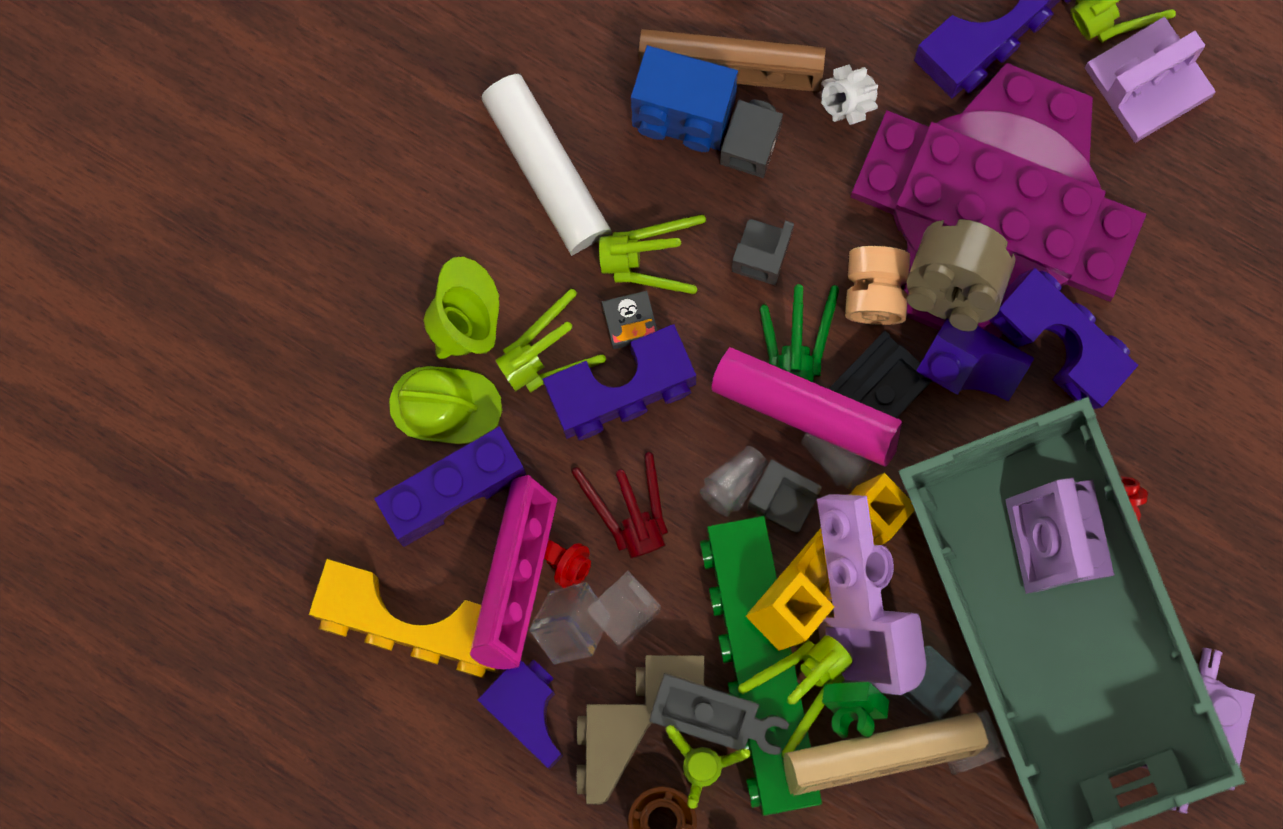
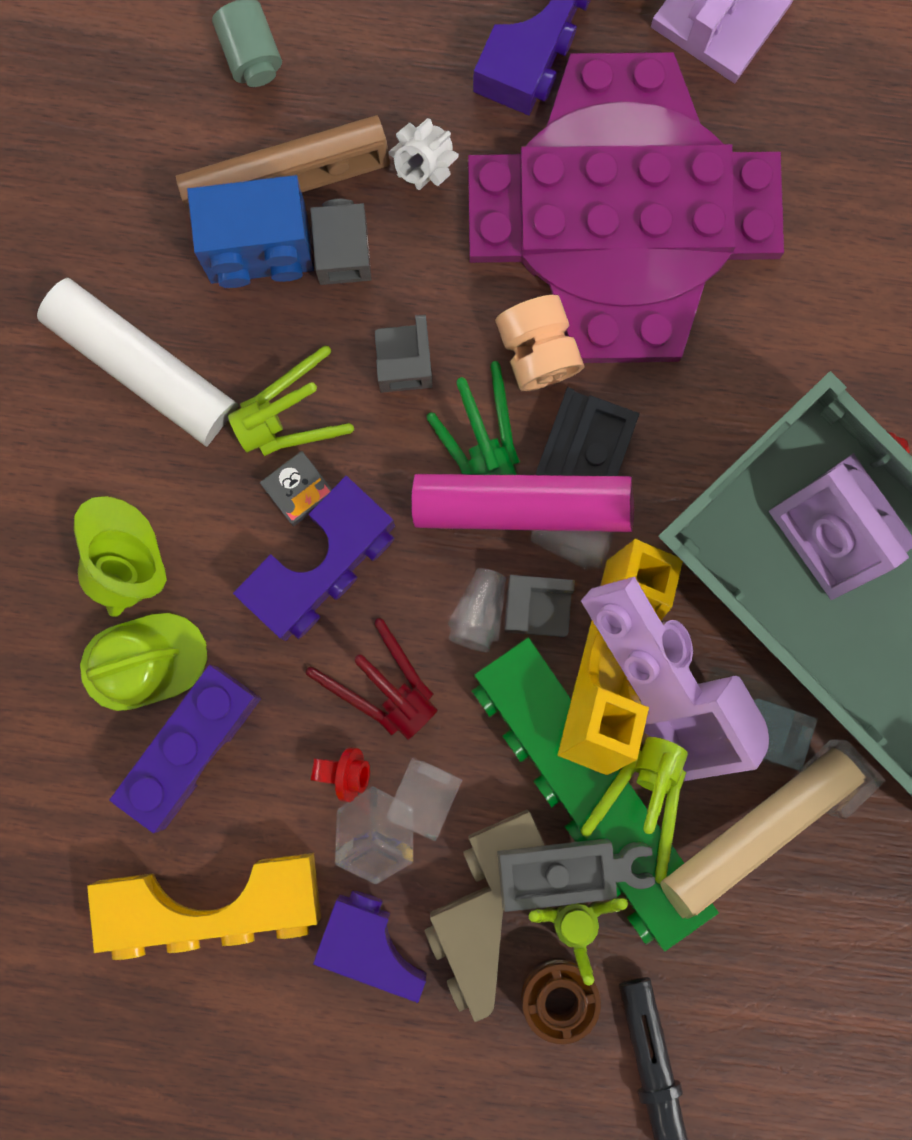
camera: 30 degrees left, 5 degrees up
(514, 575) = (294, 817): dark pink brick -> none
(521, 359) = (202, 581): lime plant -> none
(855, 702) = (707, 796): green tile -> none
(960, 273) = (624, 293): dark tan brick -> none
(974, 362) = (671, 377): dark purple arch -> none
(1093, 363) = (794, 327): dark purple arch -> none

